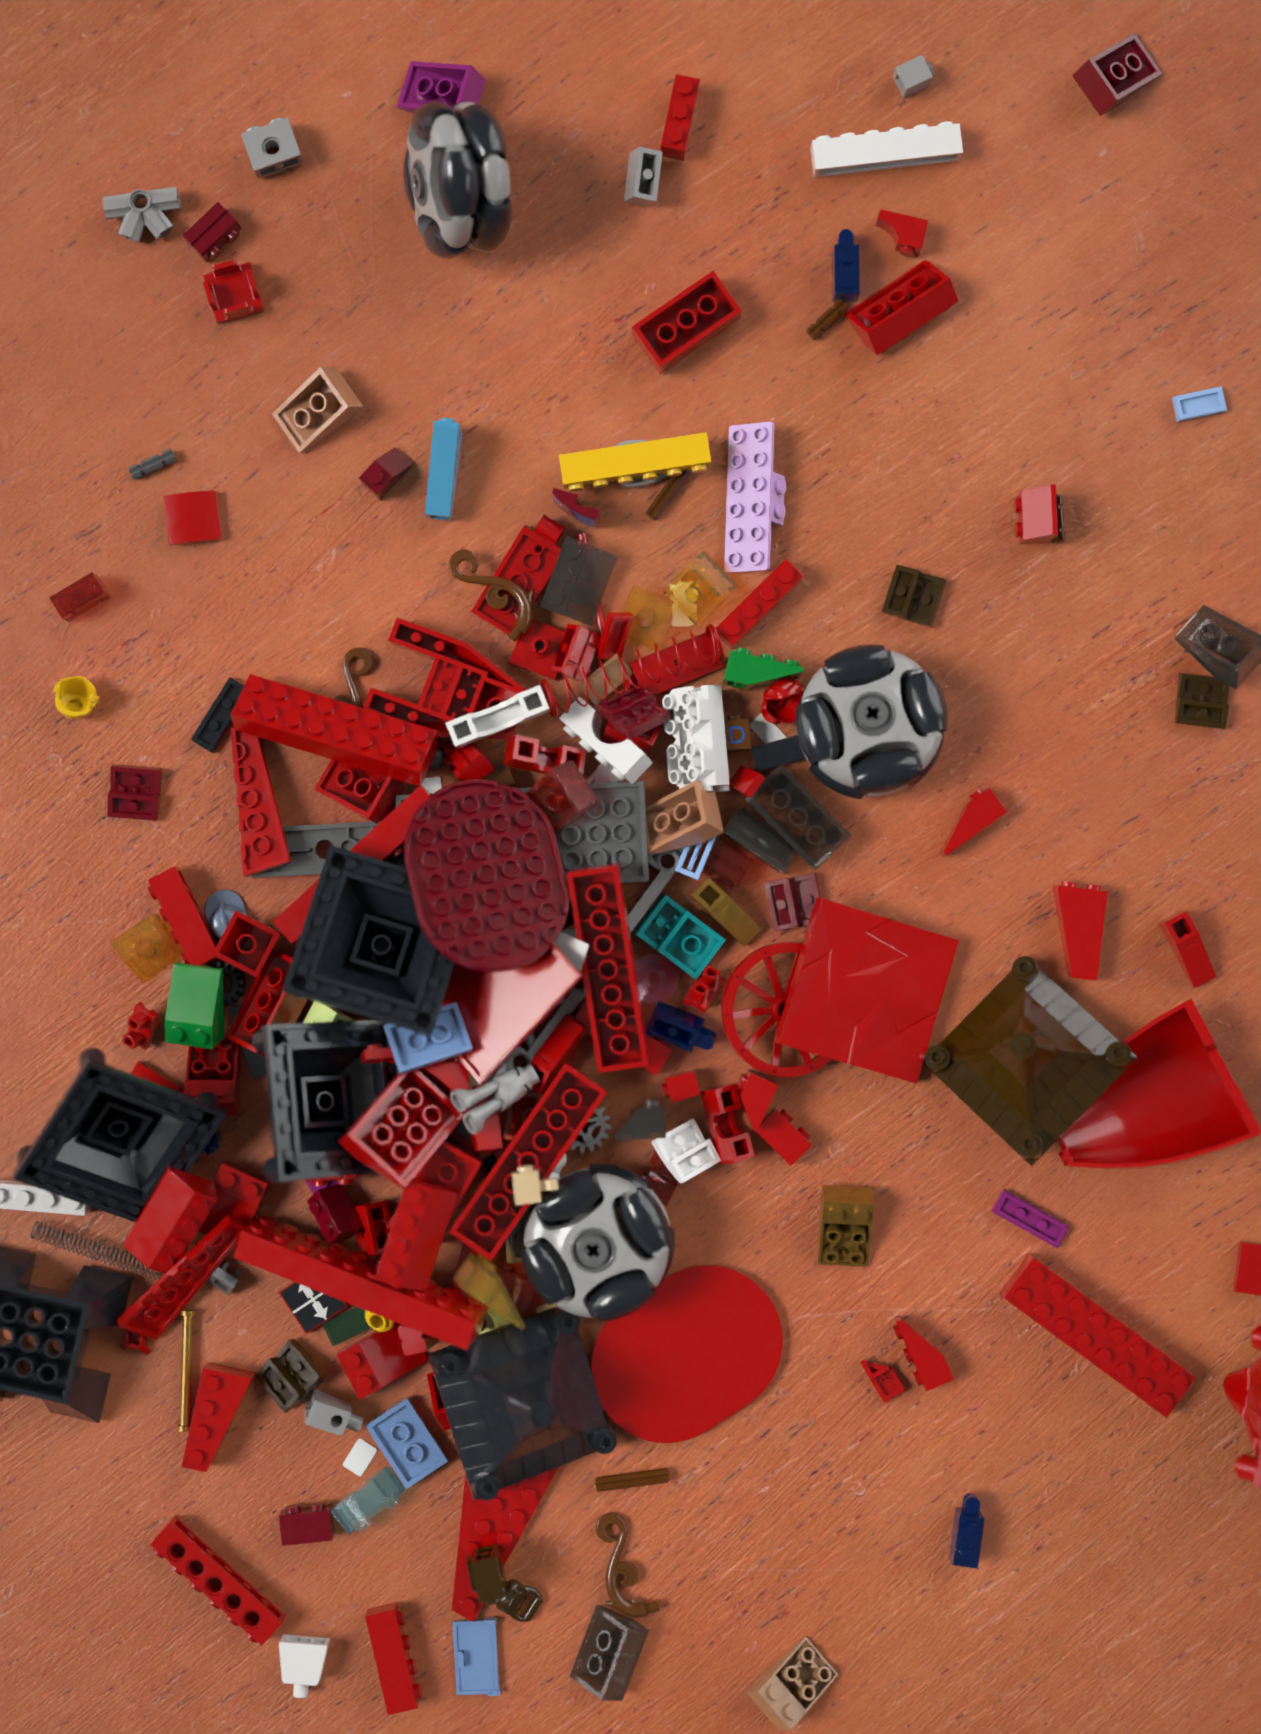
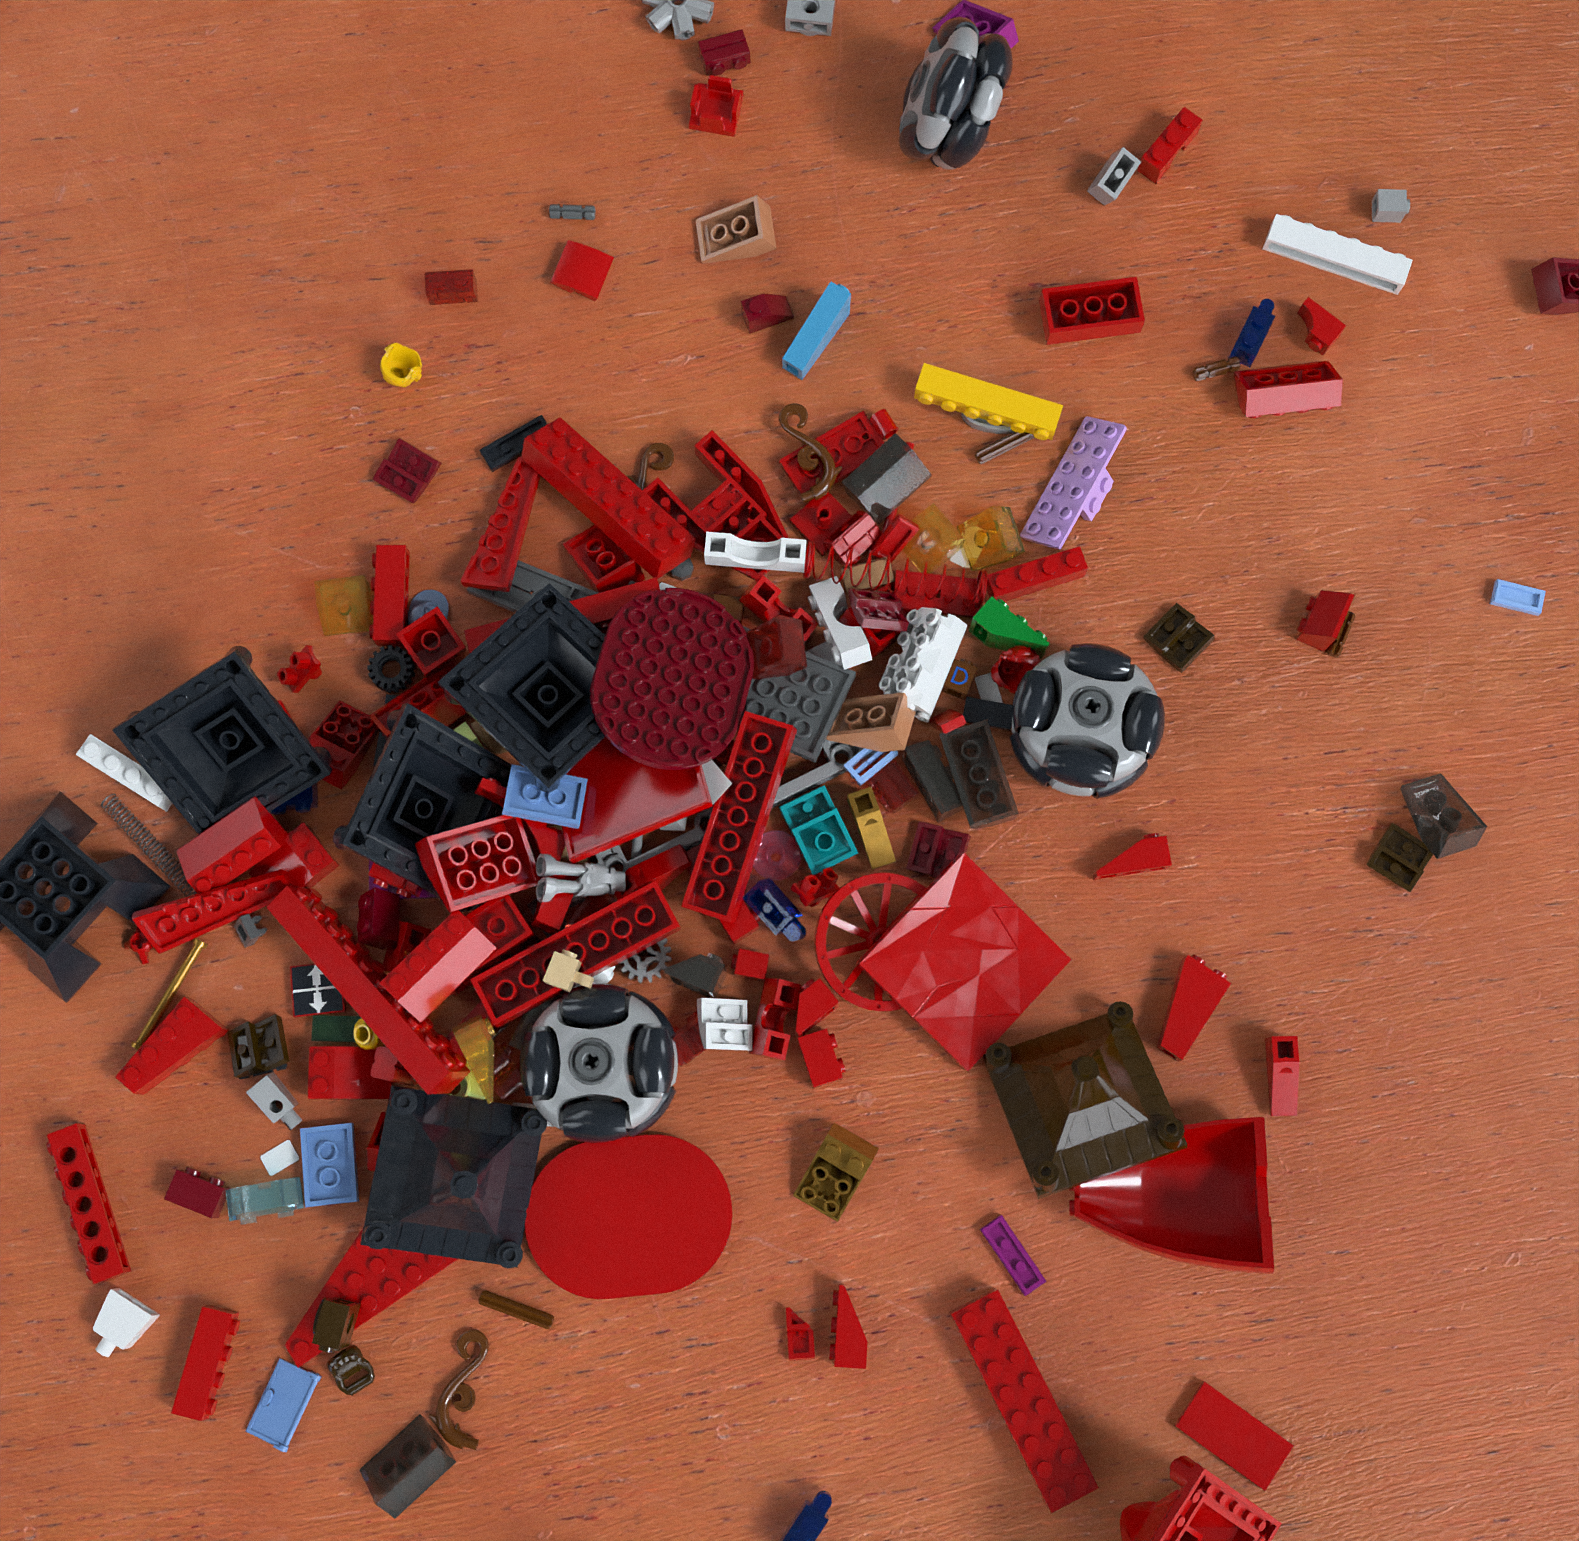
camera: 25 degrees right, 10 degrees down
(195, 1006) = (357, 673): green slope -> none
(466, 761) = (708, 580): red brick -> none
(569, 504) = (917, 421): dark red slope -> none

